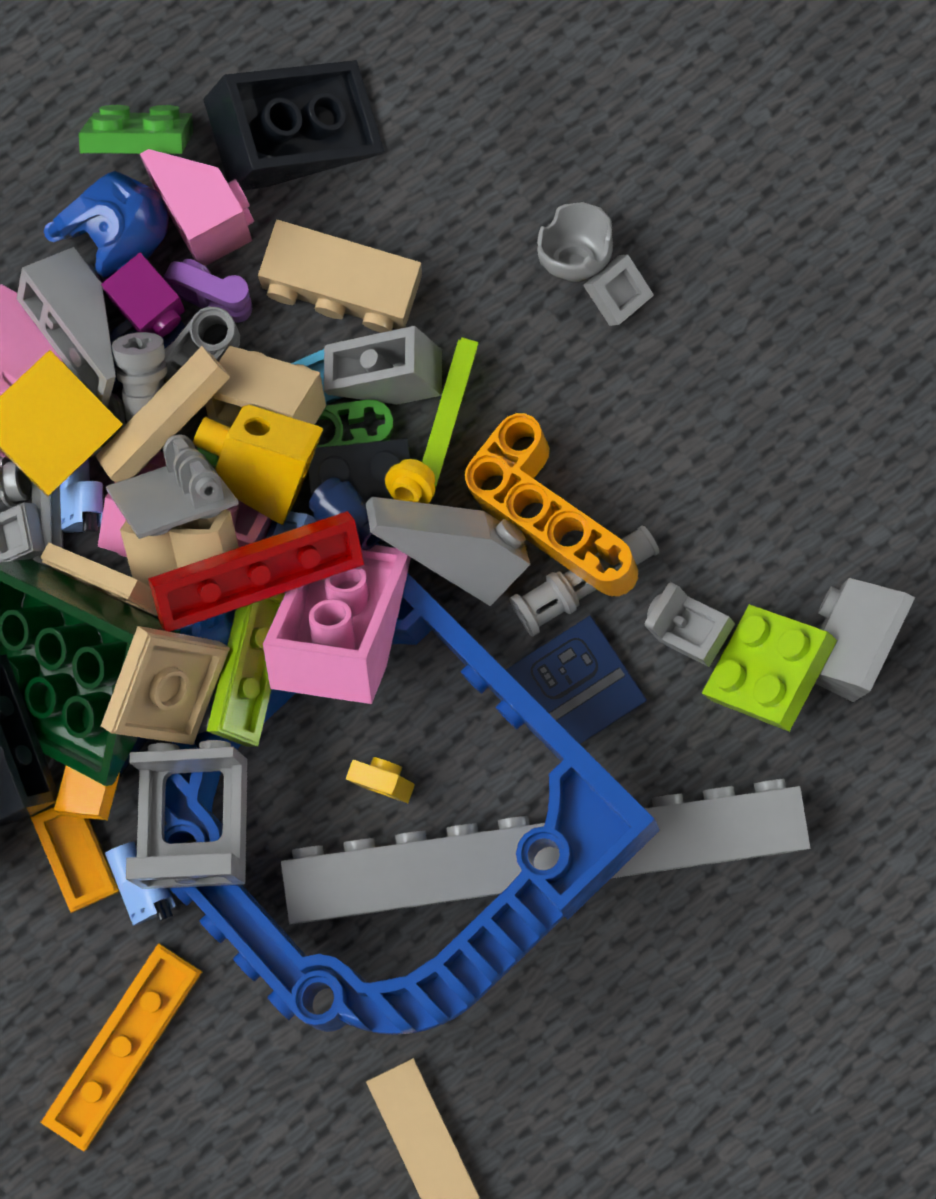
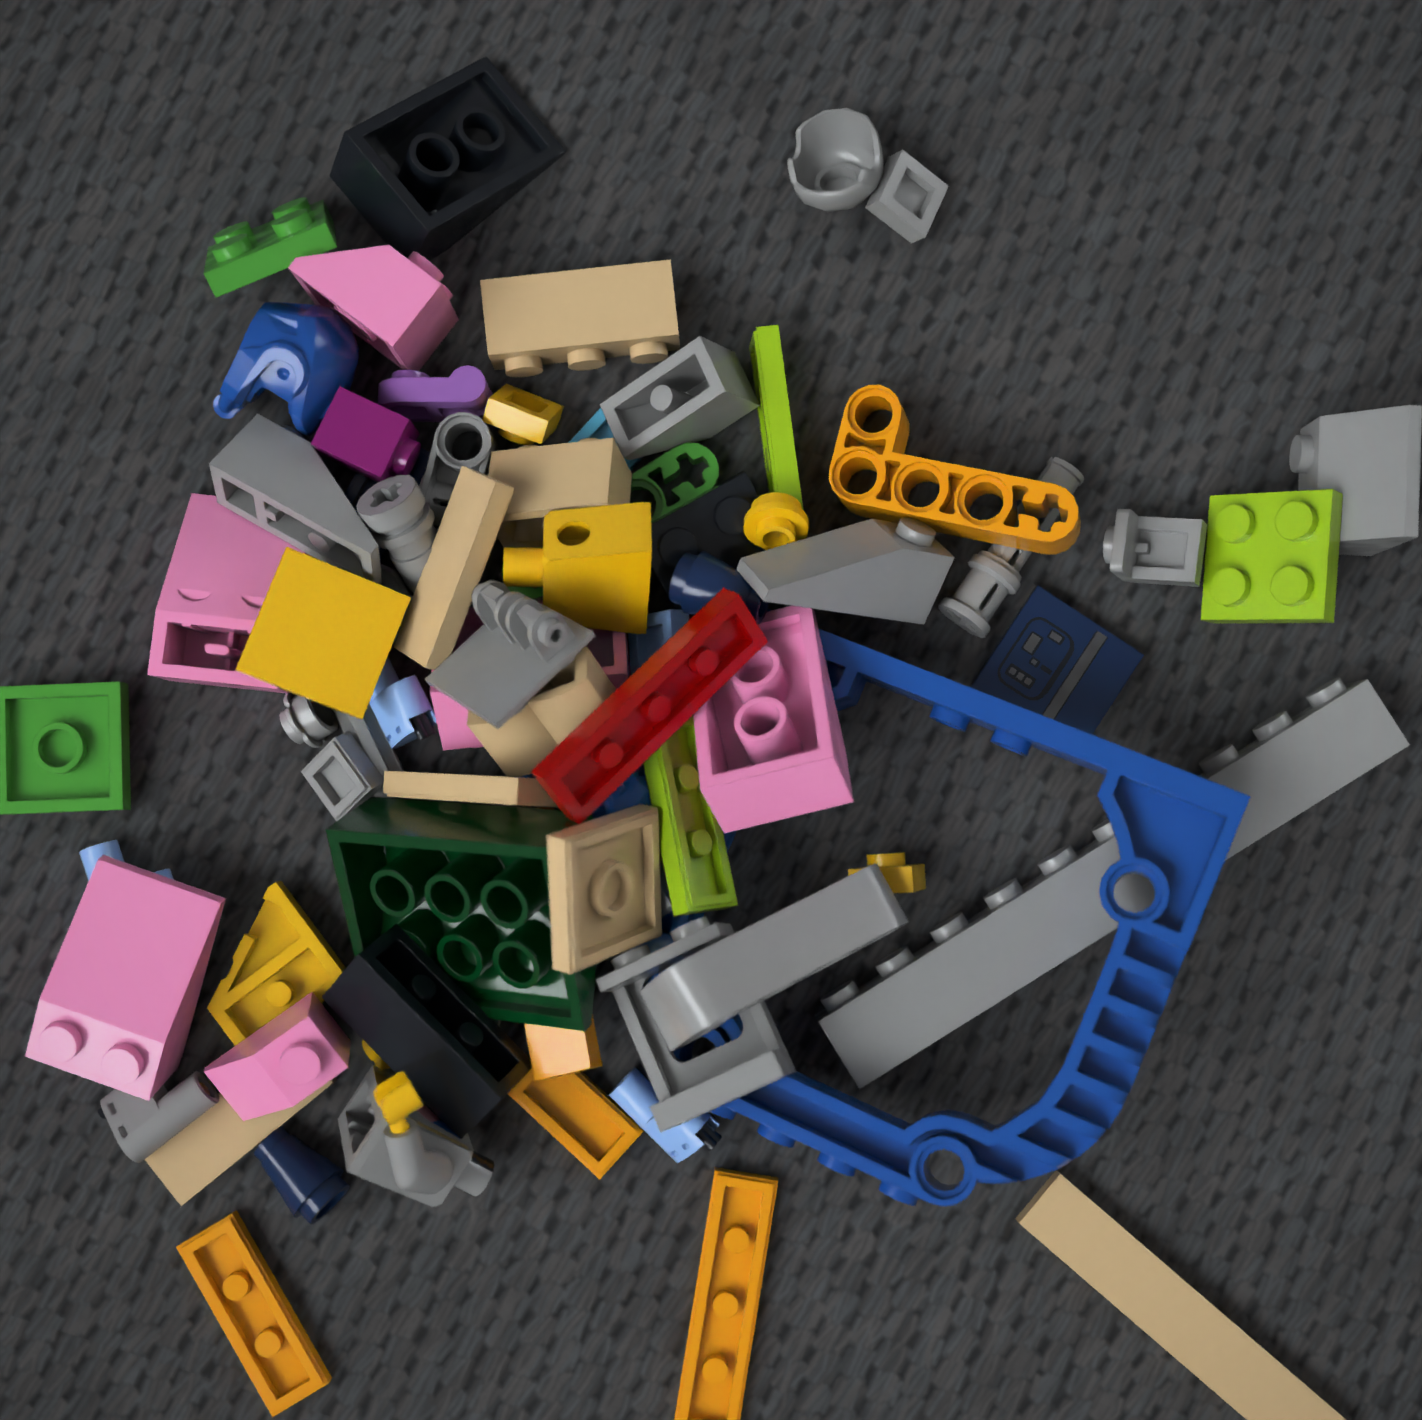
camera: 25 degrees left, 5 degrees up
(215, 789) = (771, 956): none -> light grey beam
(265, 329) = (522, 415): none -> yellow plate

